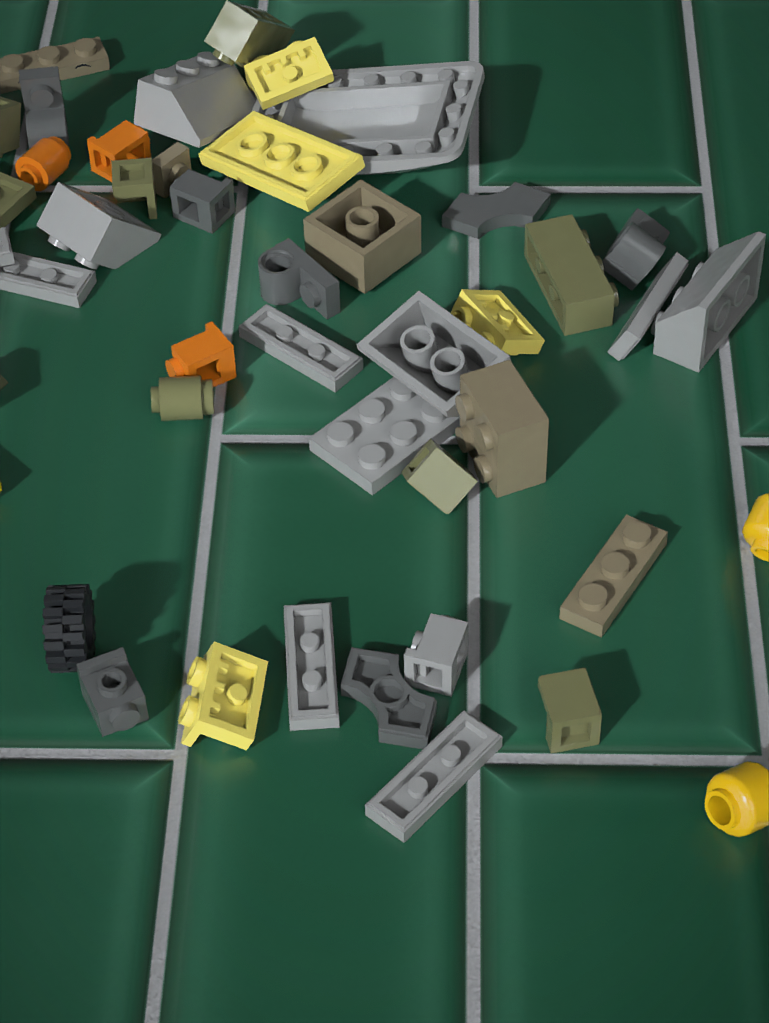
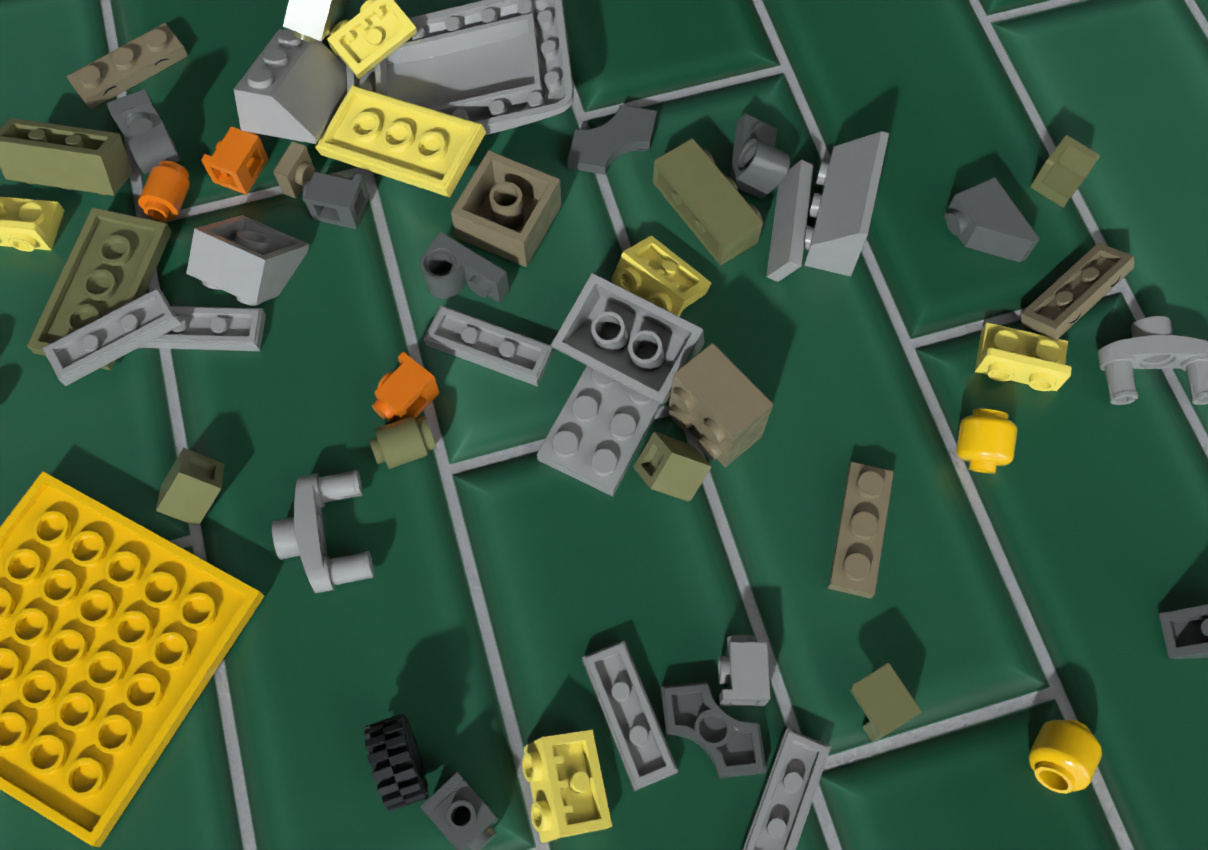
camera: 20 degrees left, 20 degrees up
(61, 449) = (305, 532): none -> light grey connector
(135, 182) = (265, 198): olive panel -> none

